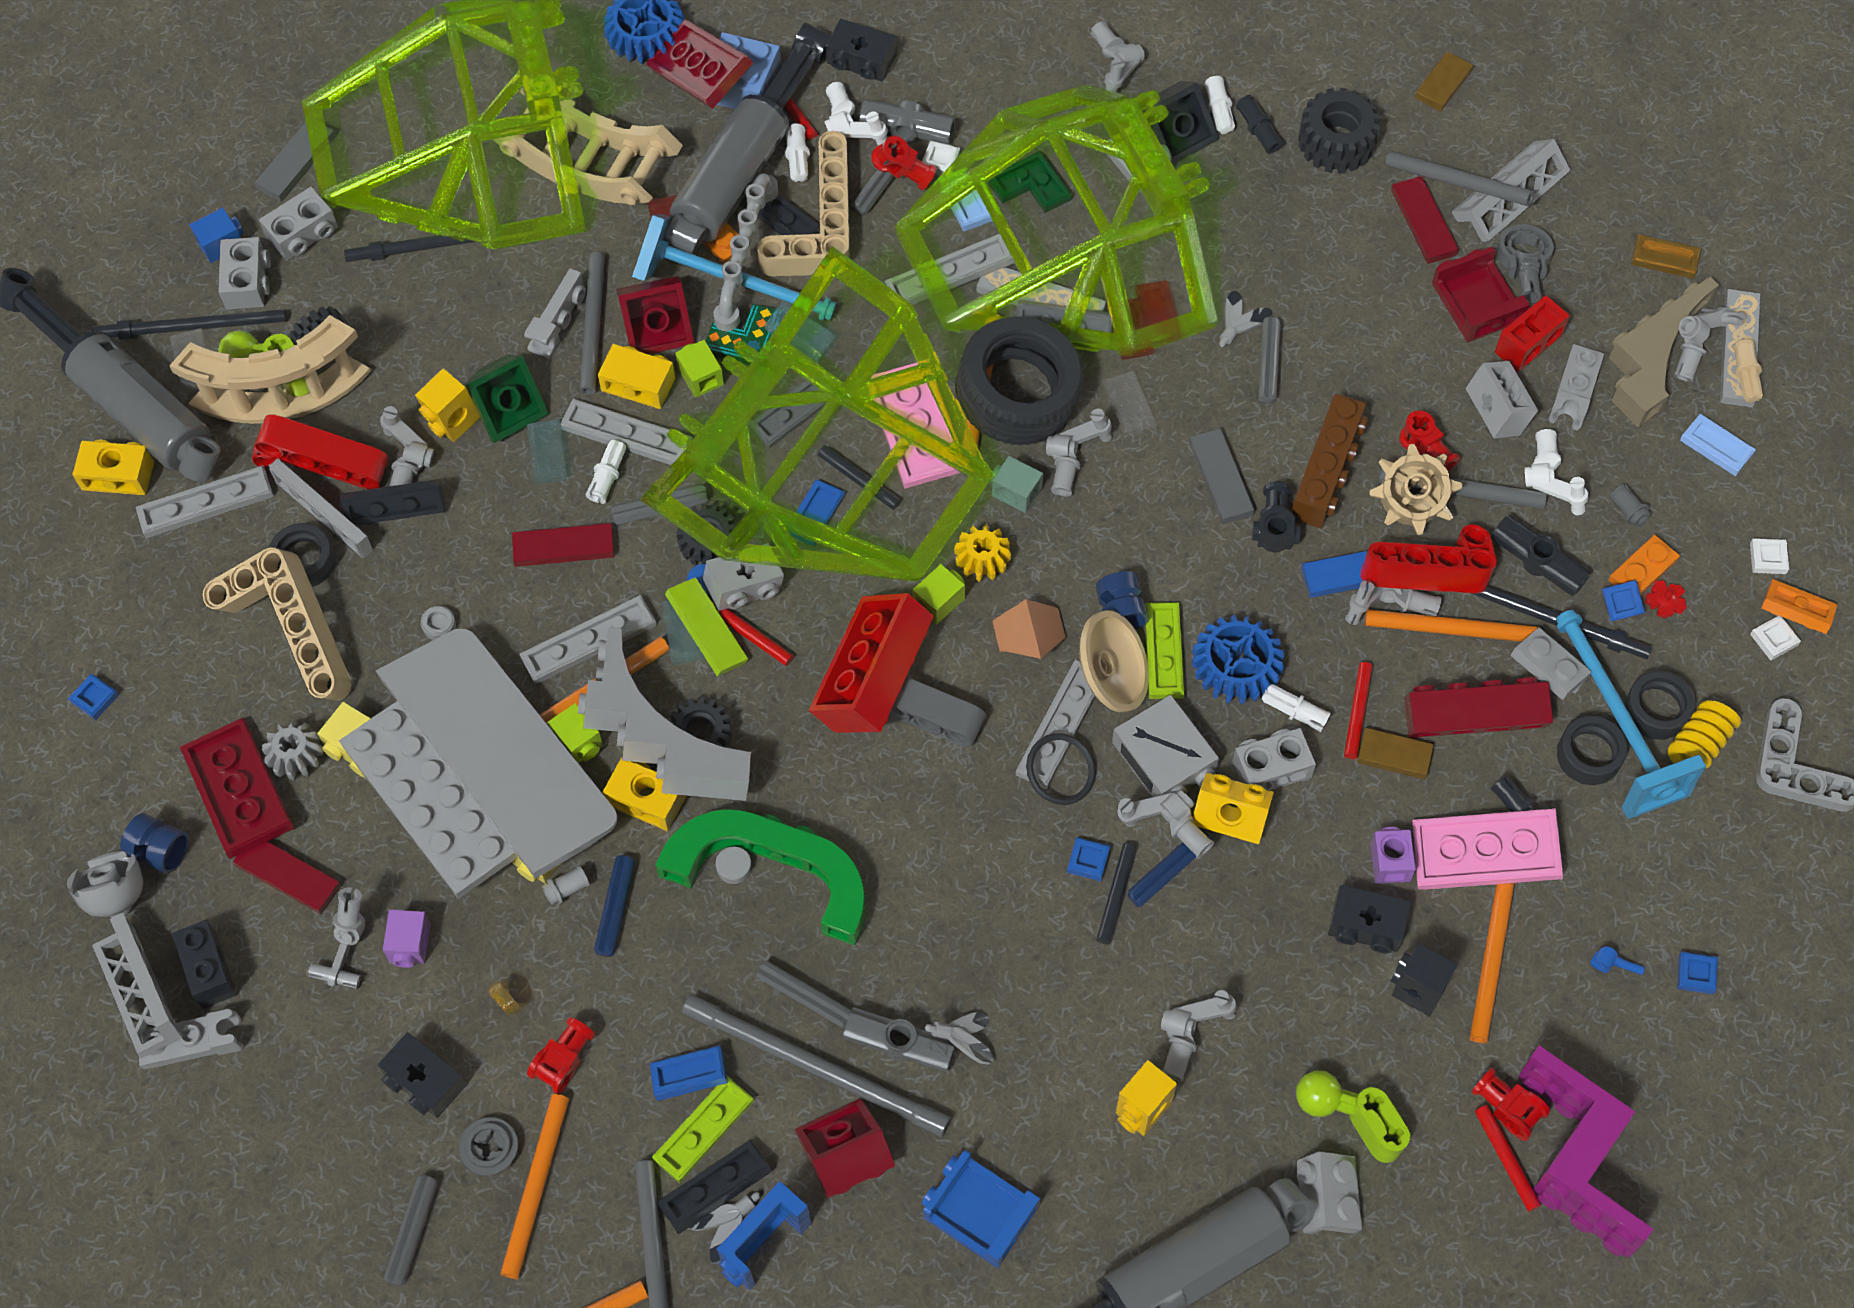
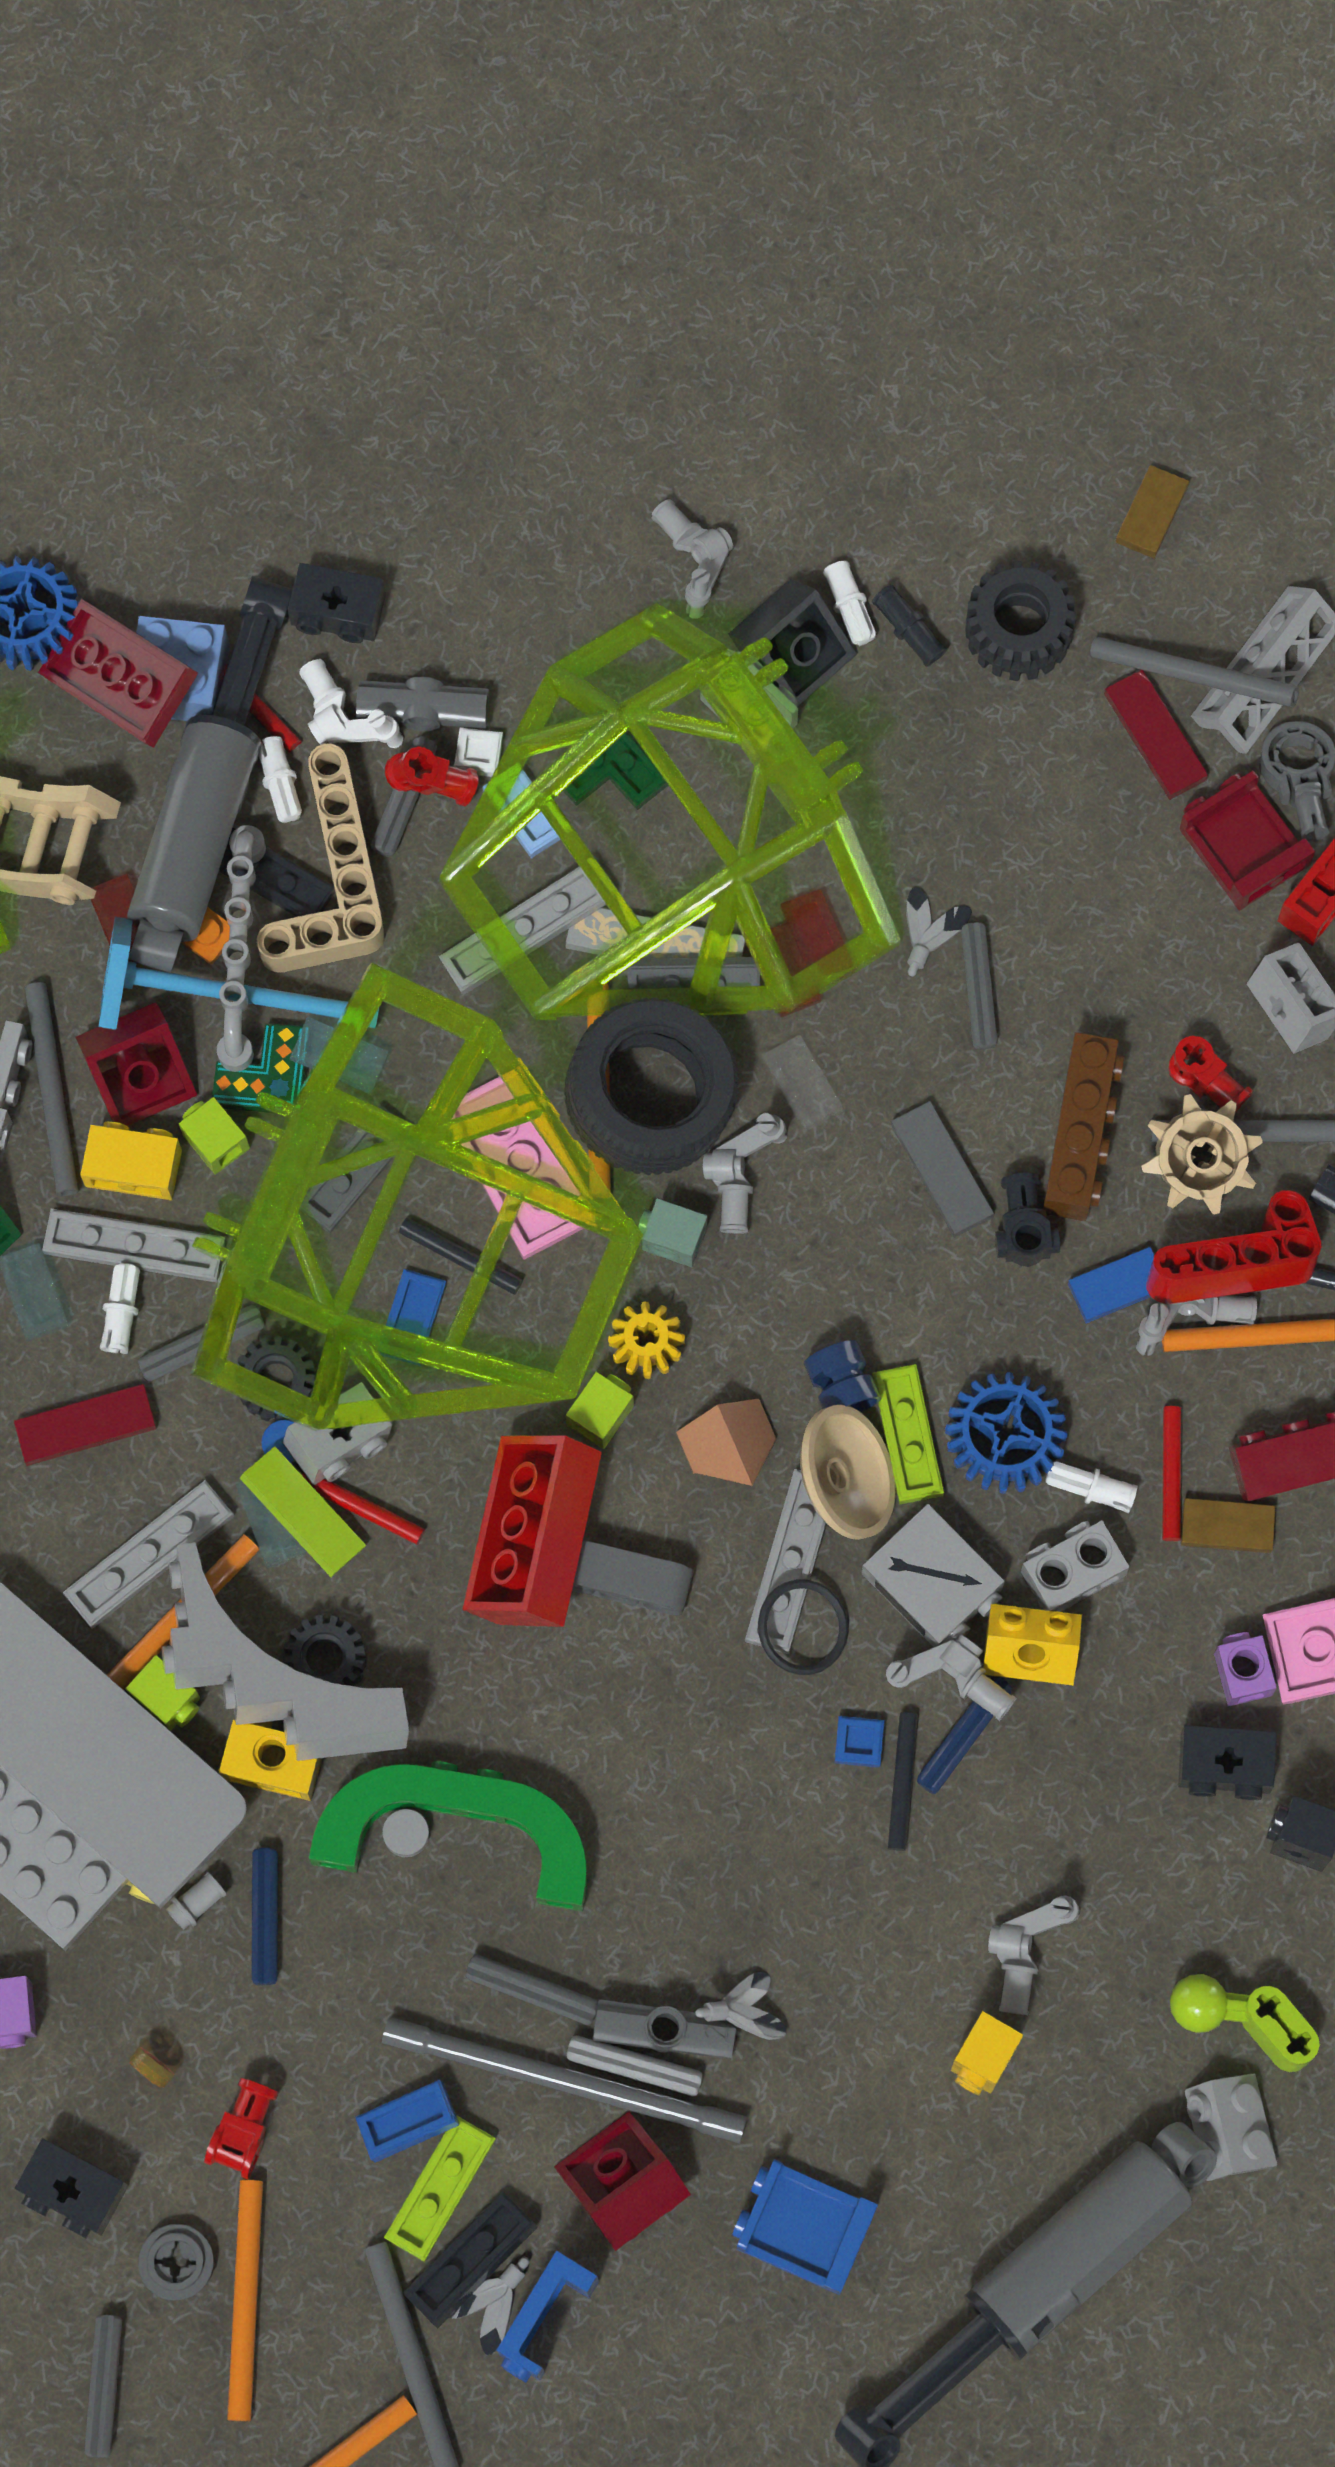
camera: 10 degrees left, 10 degrees up
(871, 1064) = (634, 2065): none -> light grey axle

